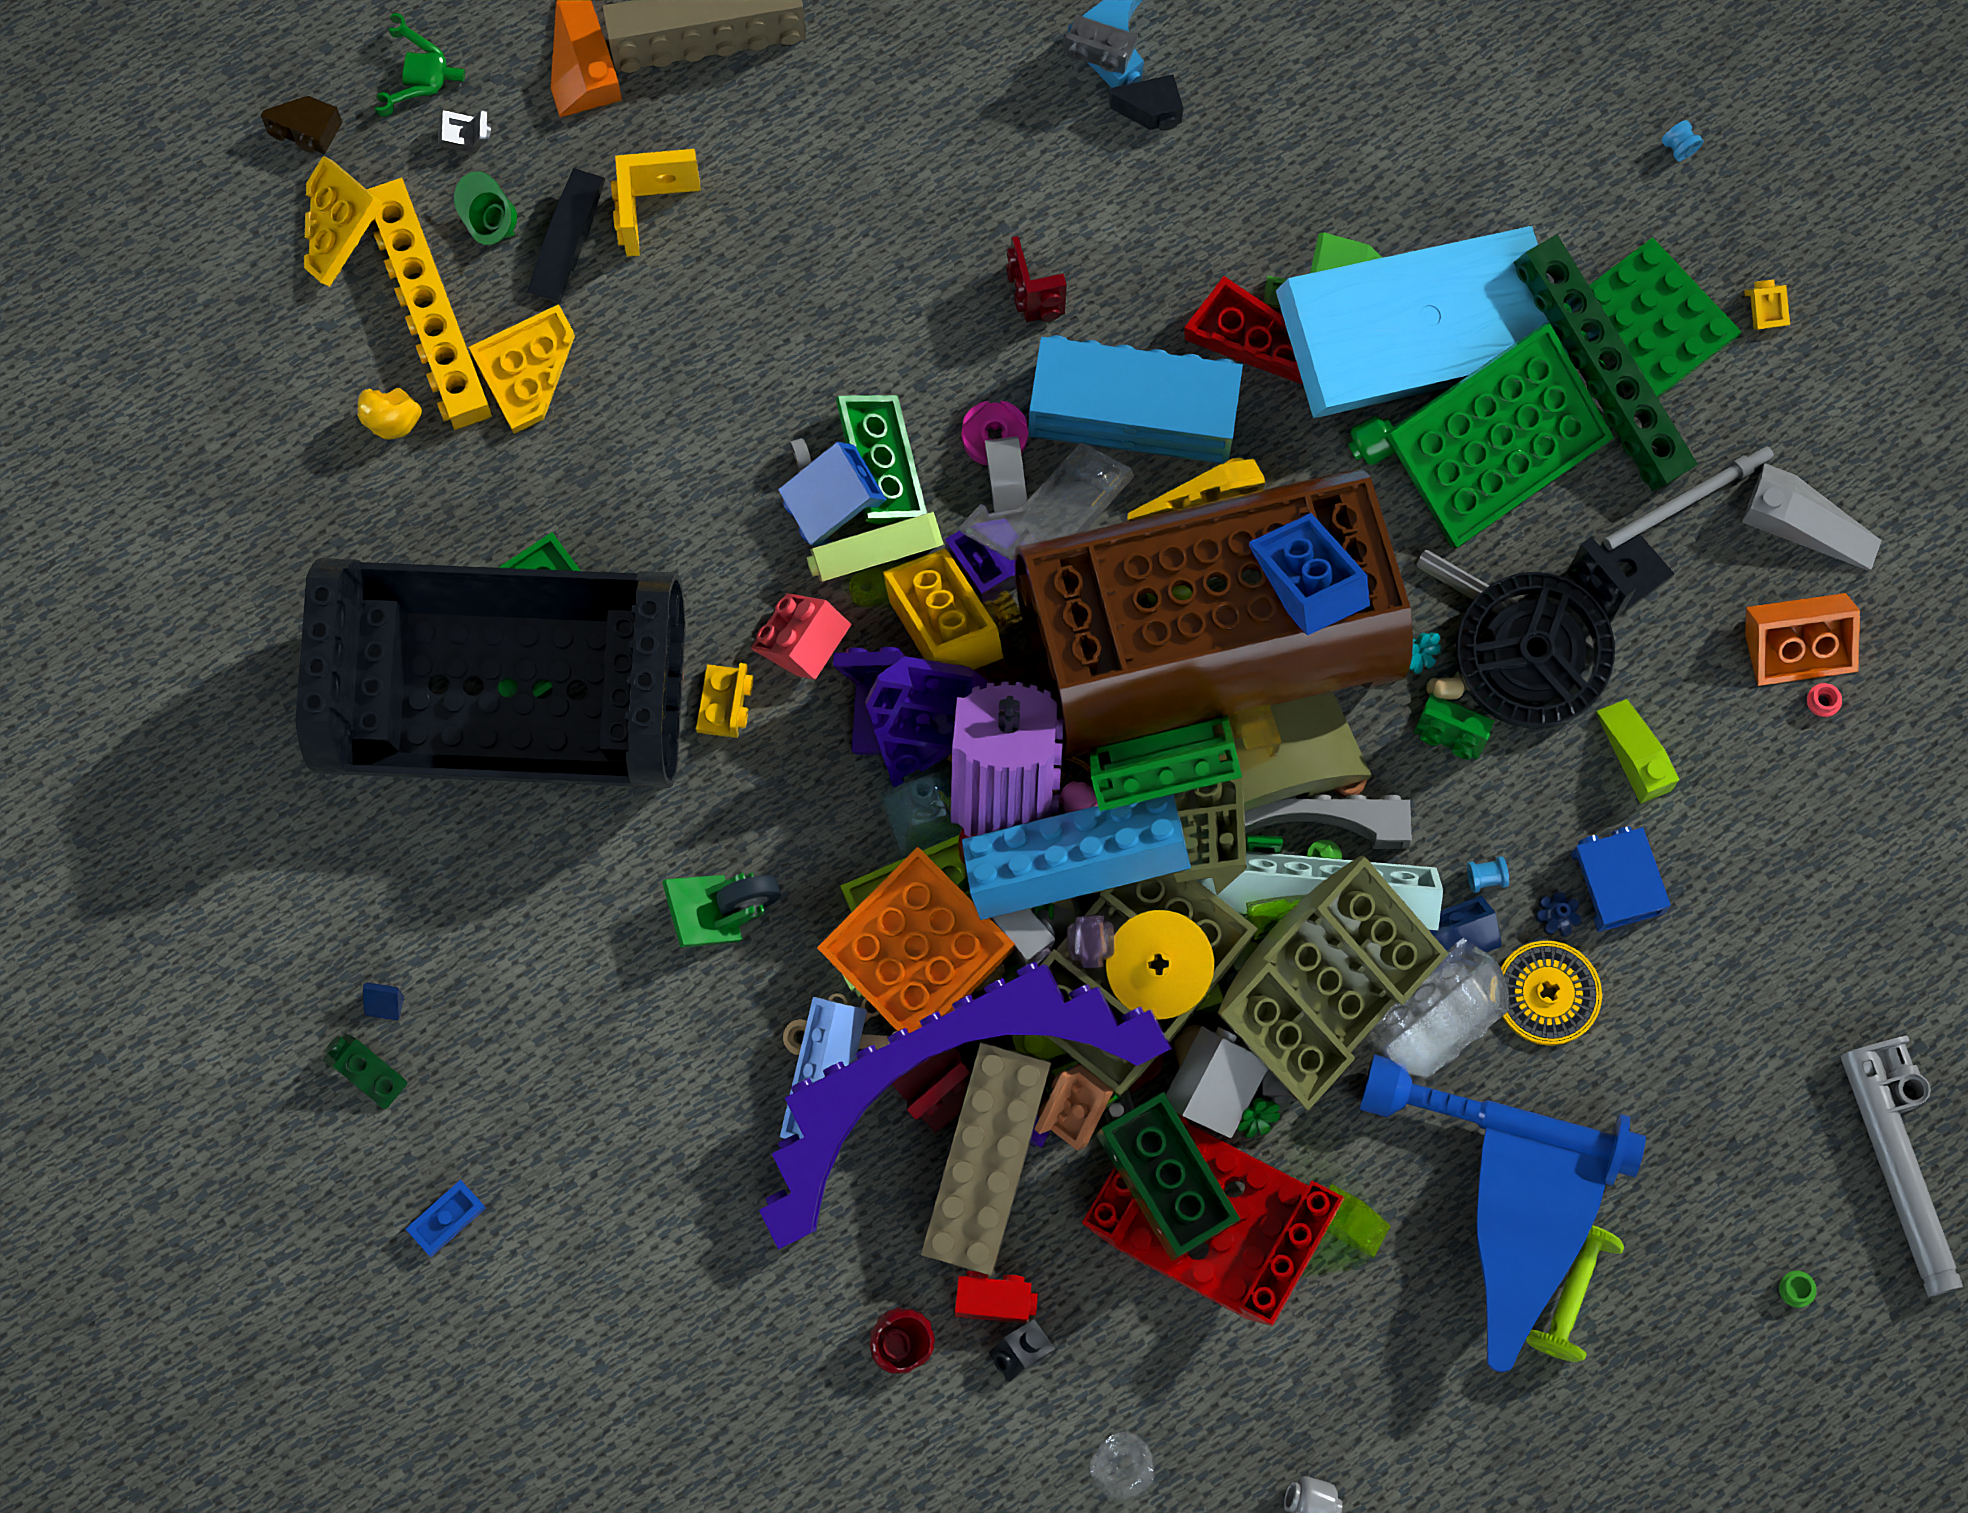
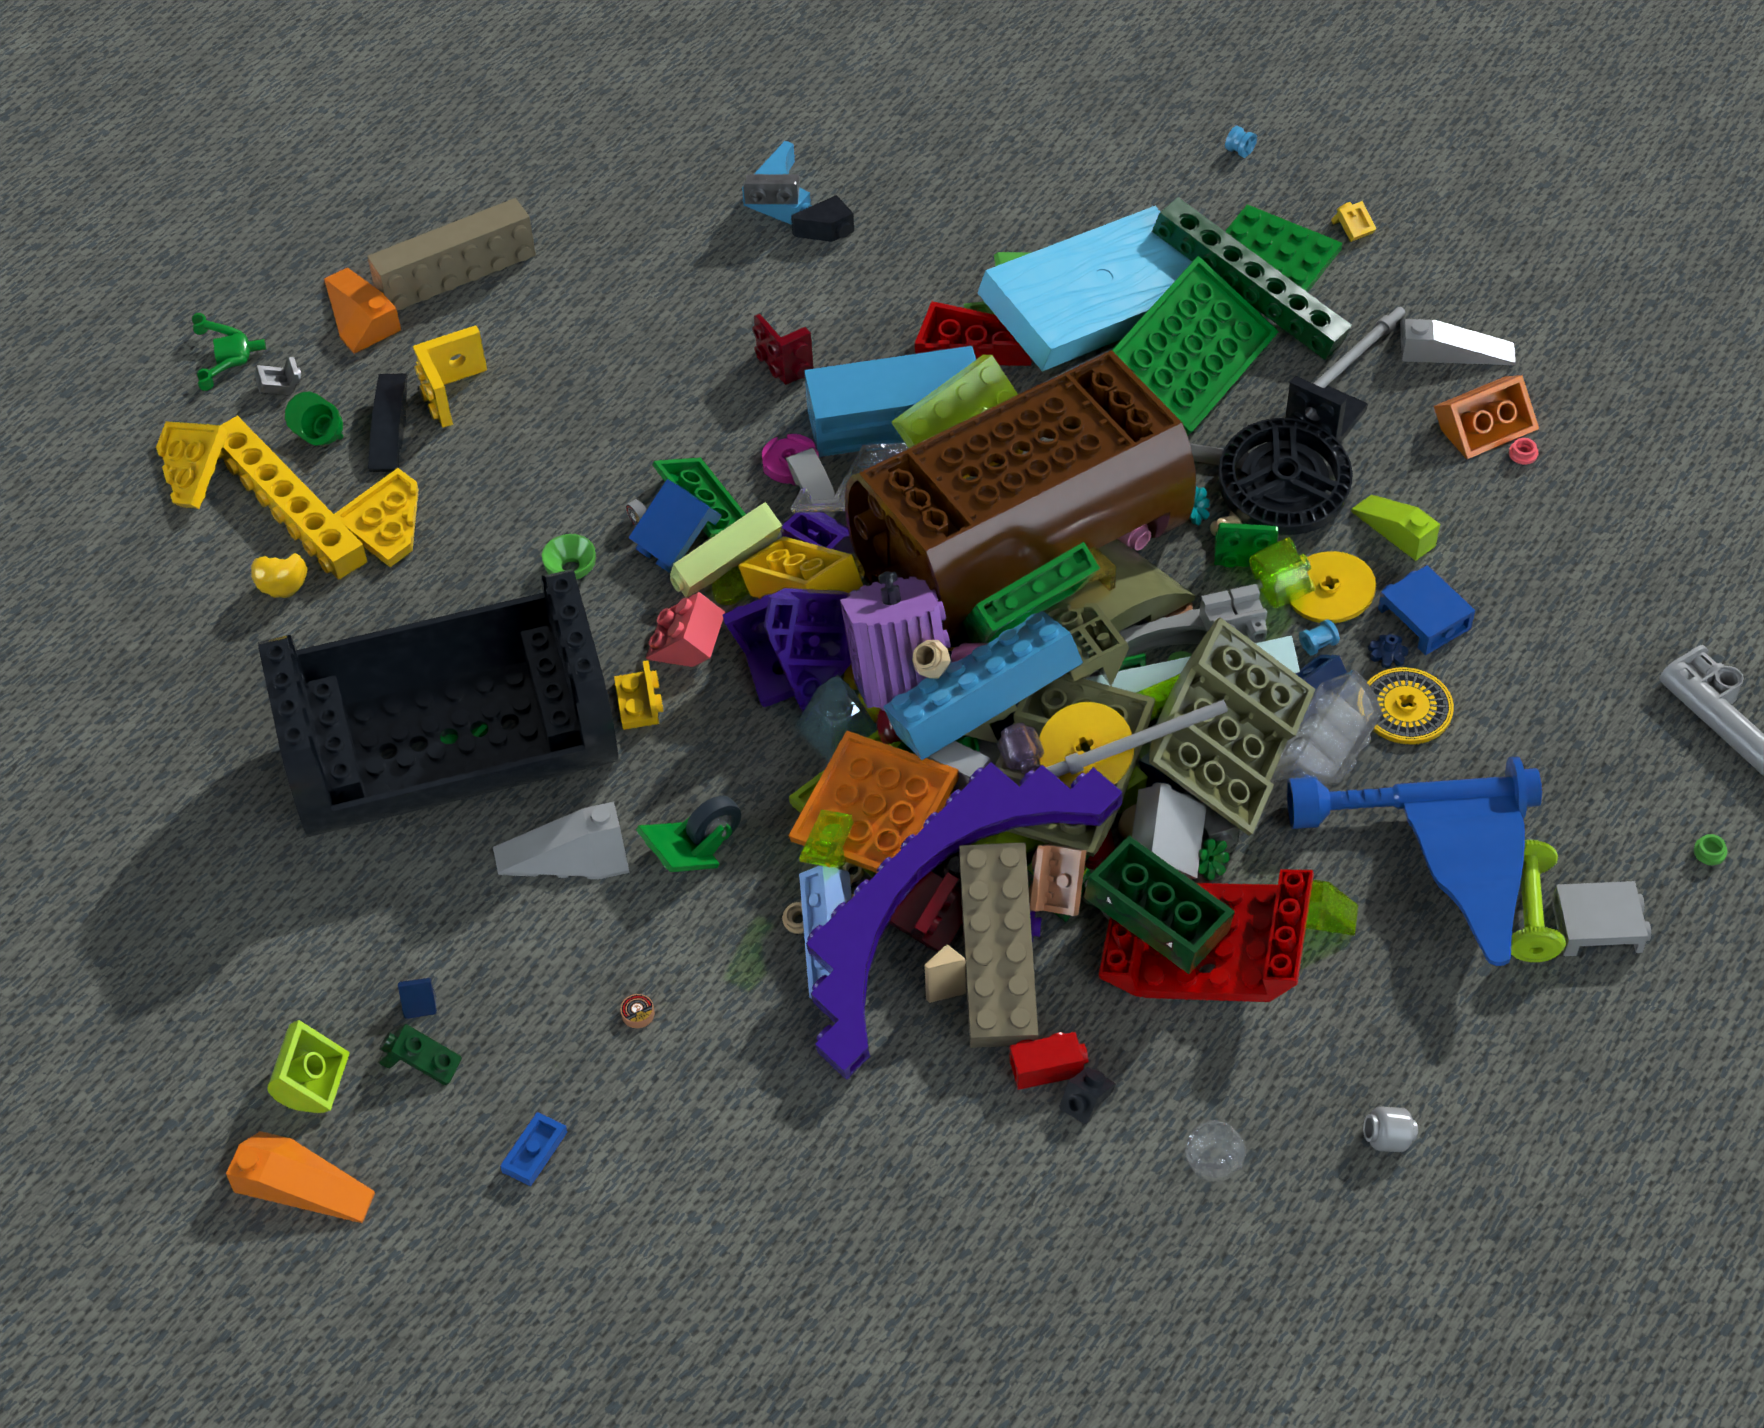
camera: 15 degrees left, 20 degrees down
(200, 1159) = (294, 1176): none -> orange wedge
(247, 1053) = (307, 1070): none -> lime brick
(303, 121) = (140, 406): dark brown slope -> none
(592, 869) = (574, 845): none -> light grey wedge
(600, 1090) = (637, 1011): none -> tile
(702, 477) = (569, 549): none -> bright green piece
(845, 983) = (827, 839): none -> clear neon green slope
(901, 1340) = (980, 1112): dark red hair -> none
(921, 1169) = (945, 975): none -> tan slope
(1024, 815) = (931, 659): none -> tan rock
(1139, 982) = (1074, 763): none -> light grey bar
(1189, 457) = (956, 400): none -> lime brick
(1311, 573) = (1096, 416): blue slope -> none
(1384, 835) = (1239, 609): none -> light grey hips
(1477, 784) = (1282, 573): none -> clear neon green brick
(1547, 829) = (1351, 593): none -> yellow piece
(1640, 1333) = (1600, 915): none -> light grey panel

